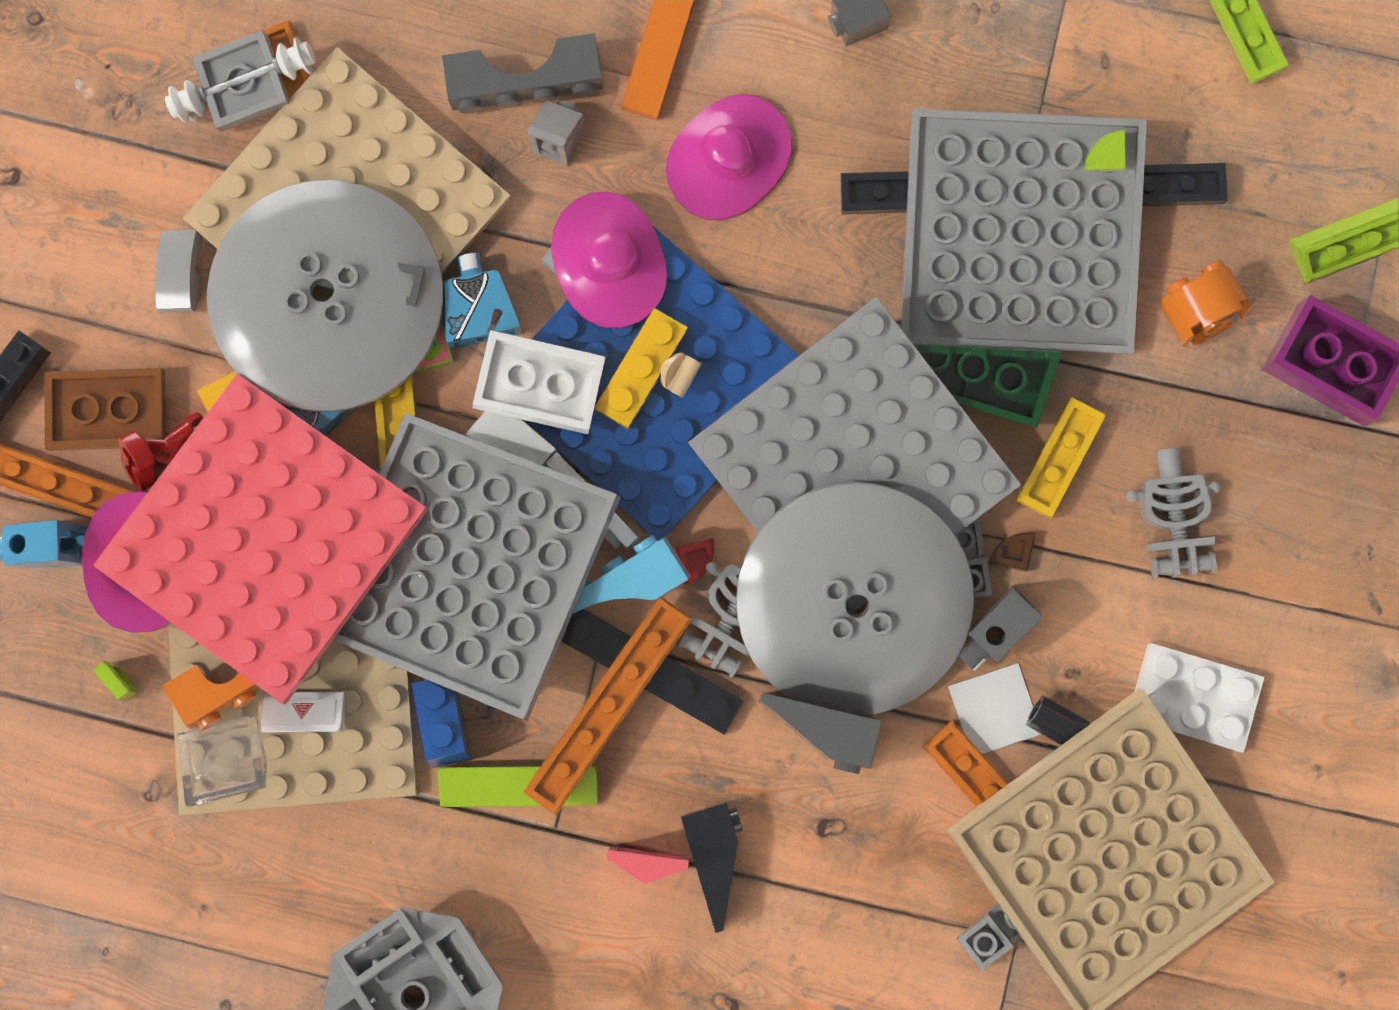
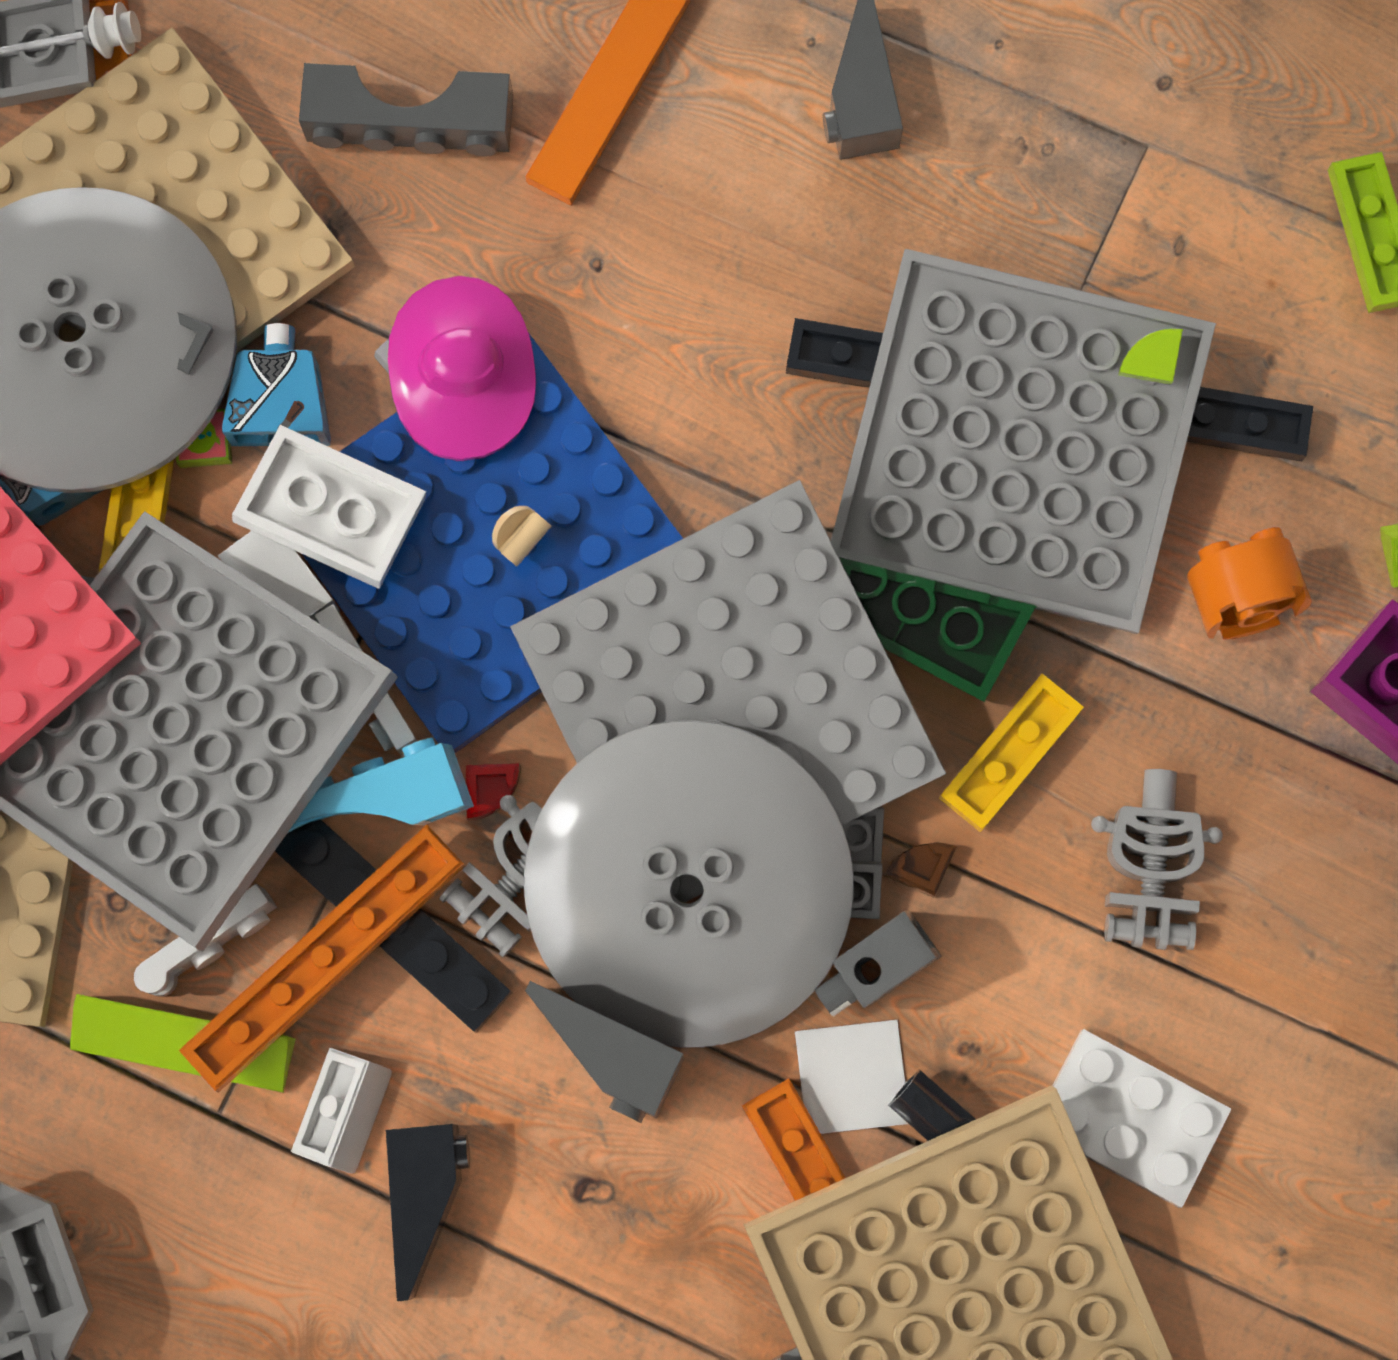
camera: 15 degrees right, 5 degrees down
(441, 724) = (93, 936): blue brick -> none
(492, 742) = (160, 971): none -> white plate
(556, 131) = (430, 190): light grey slope -> none
(640, 368) = (469, 518): yellow plate -> none
(642, 809) = (341, 1111): none -> white slope
(647, 865) = (321, 1186): coral slope -> none
(729, 157) = (653, 271): dark pink hat -> none

